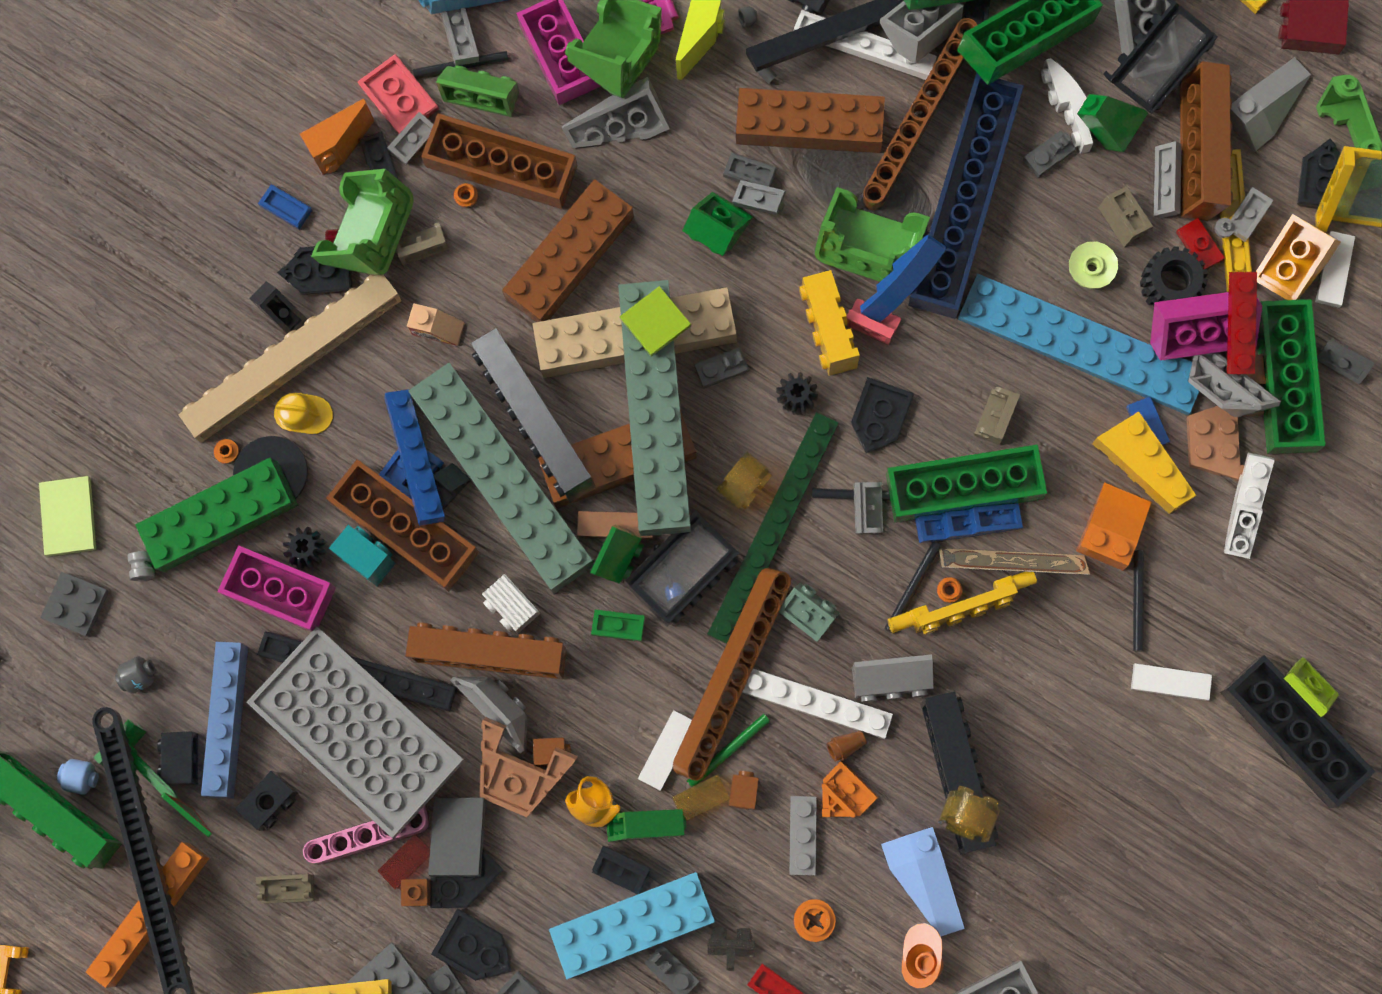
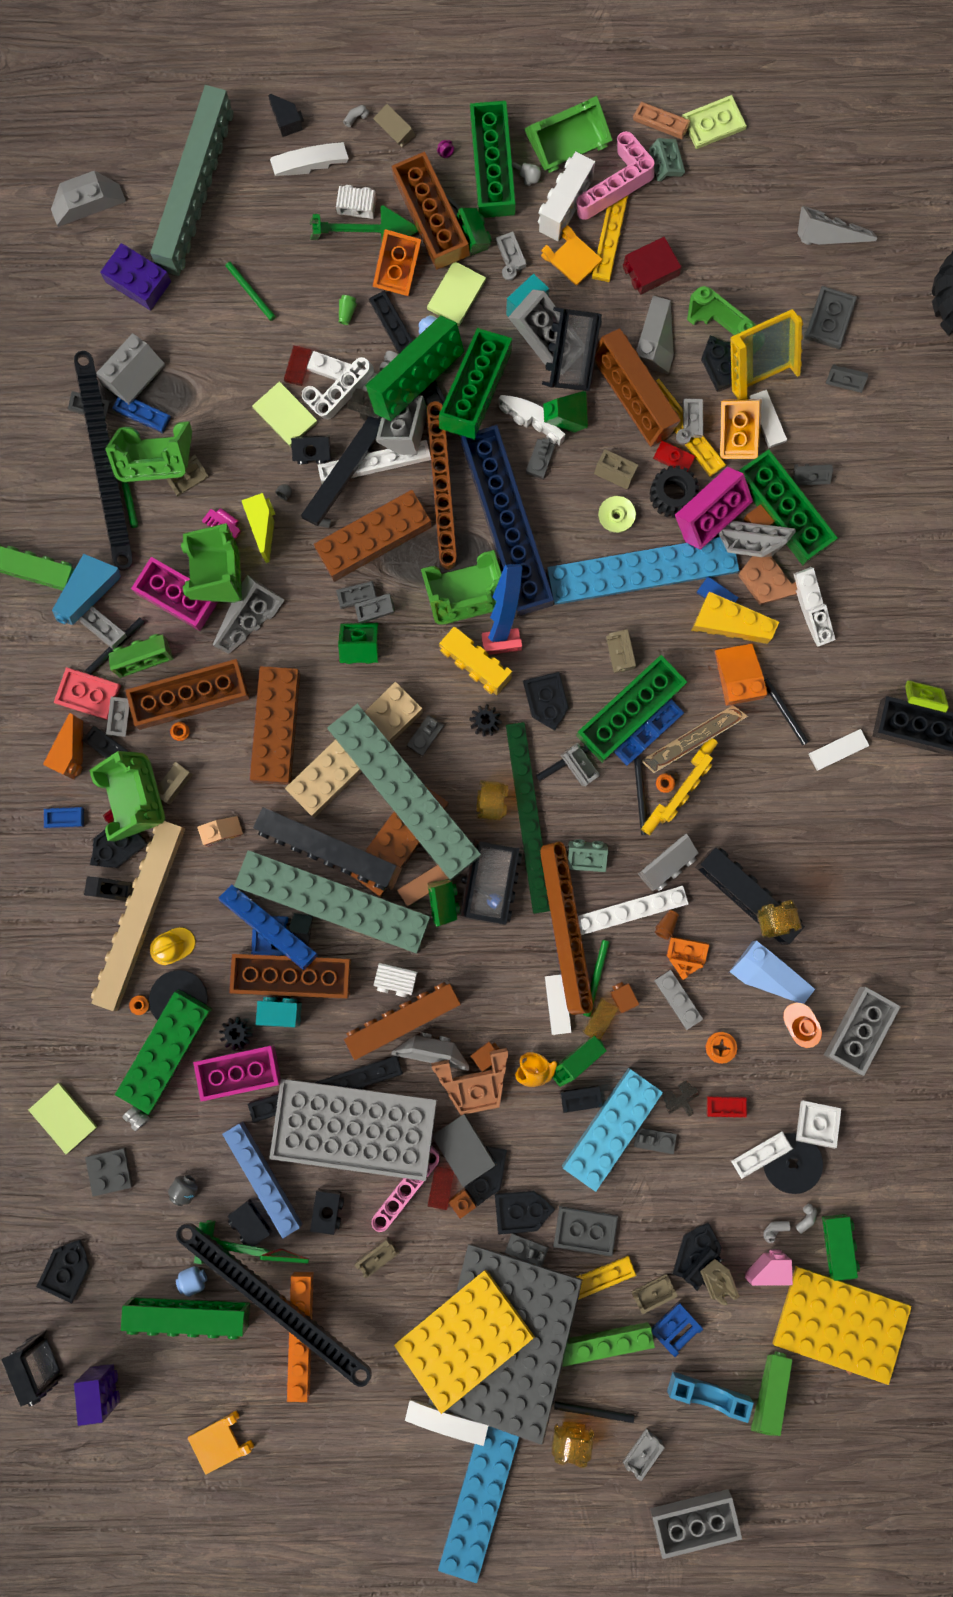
camera: 40 degrees left, 5 degrees up
(618, 625) = (473, 946): green plate -> none
(655, 321) = (368, 736): lime tile -> none
(1167, 180) = (626, 428): light grey plate -> none
(1242, 322) = (738, 493): red plate -> none

